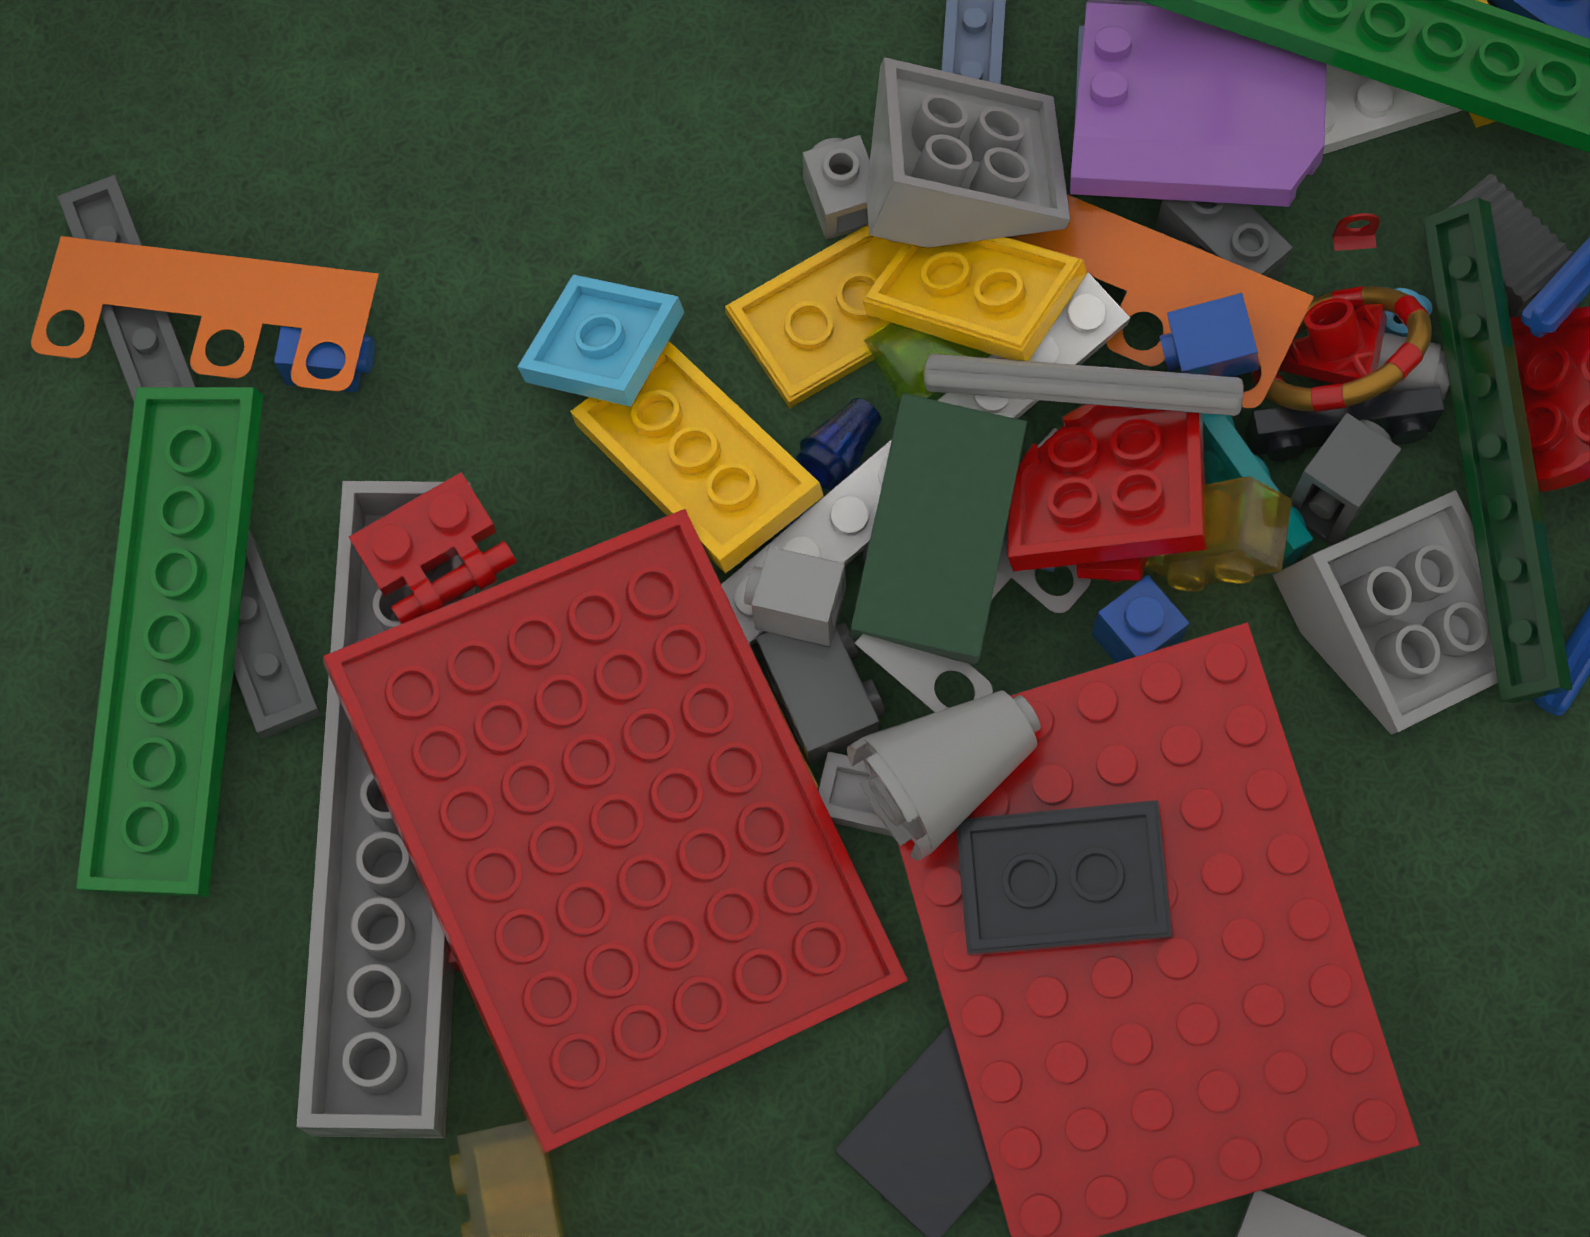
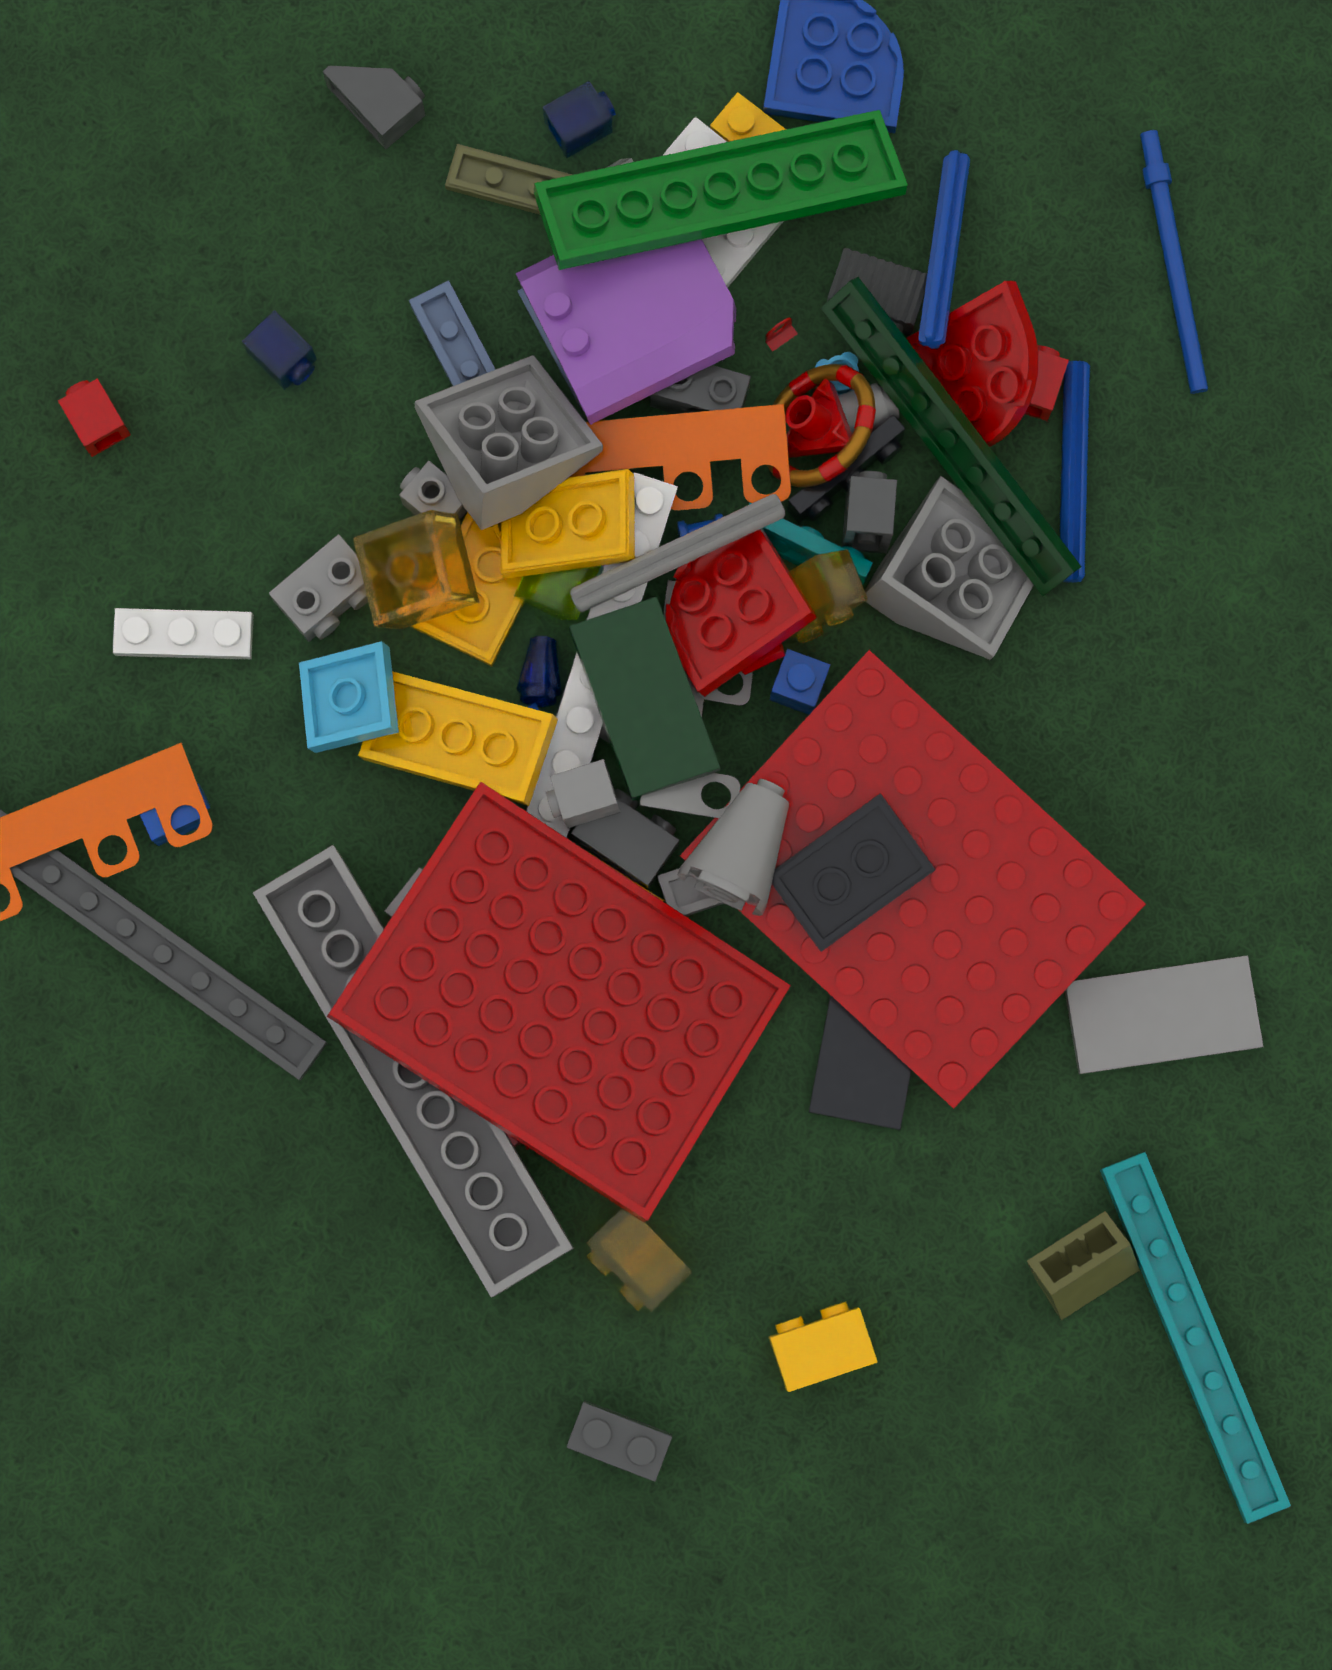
camera: 35 degrees left, 10 degrees up
(171, 642) = (207, 1054): green plate -> none
(425, 535) = (329, 898): red plate -> none
(468, 174) = (183, 633): none -> white plate
(653, 211) = (322, 590): none -> light grey brick
(766, 236) = (416, 569): none -> clear yellow brick
(1211, 339) = (737, 475): blue brick -> none

